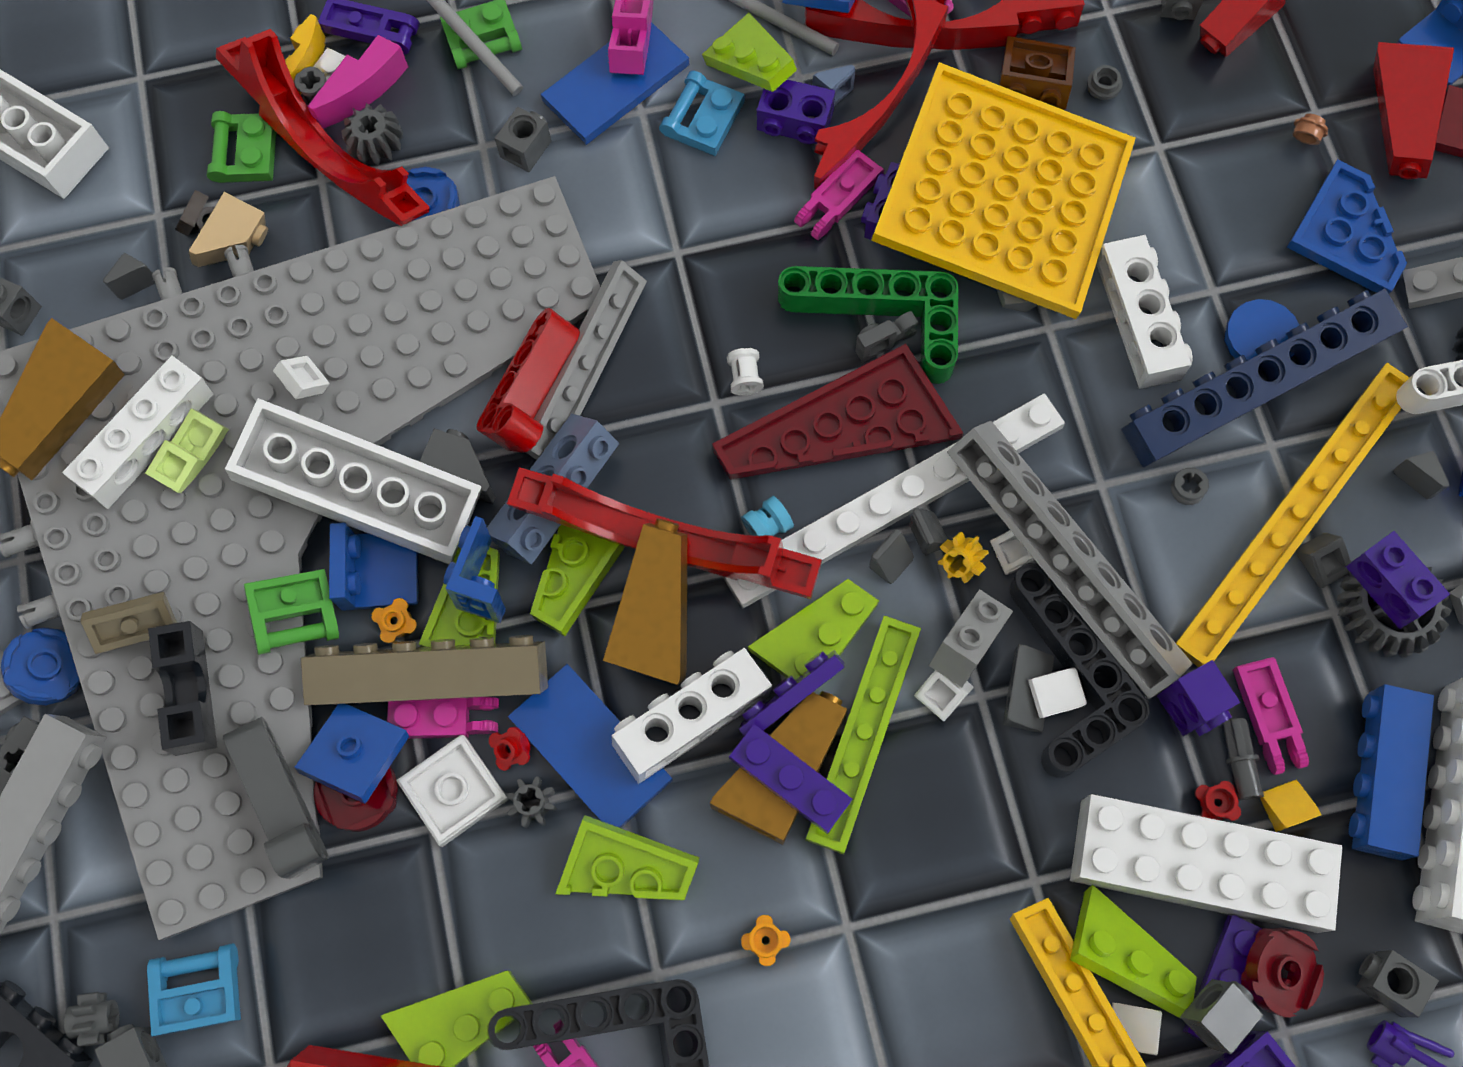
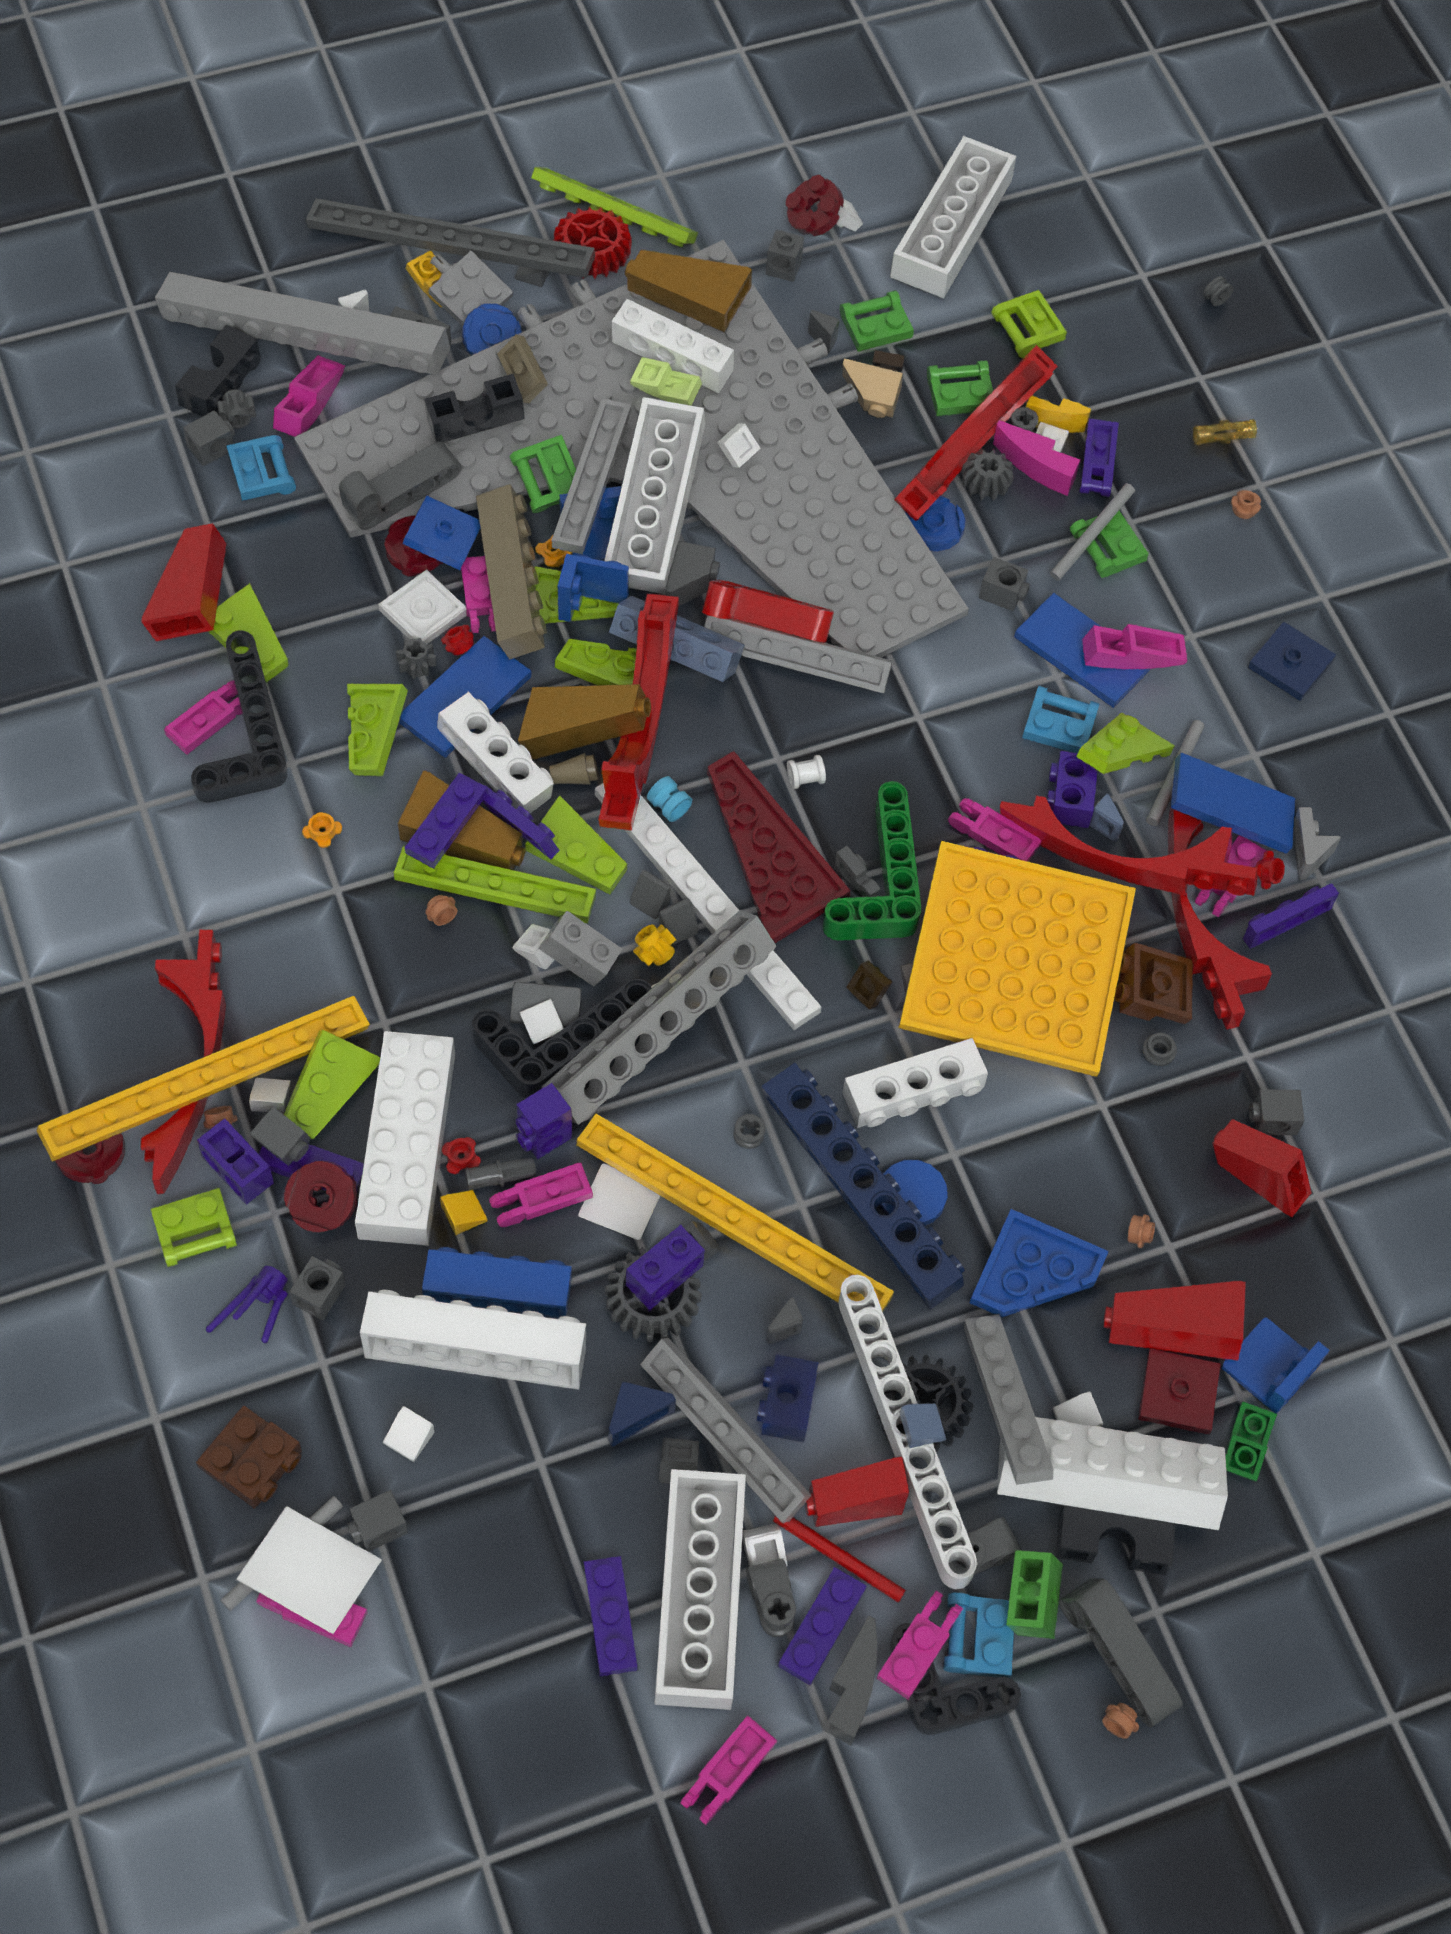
camera: 75 degrees right, 10 degrees down
(89, 918) = (307, 396): none -> dark pink slope
(137, 221) = (880, 328): none -> bright green plate
(166, 55) = (1036, 317): none -> lime plate
(314, 553) = (591, 476): none -> light grey plate
(716, 624) = (577, 770): none -> dark tan cone
(893, 799) = (441, 910): none -> nougat plate
(1022, 340) = (869, 984): none -> dark brown tile
(1270, 631) = (619, 1203): none -> white sticker

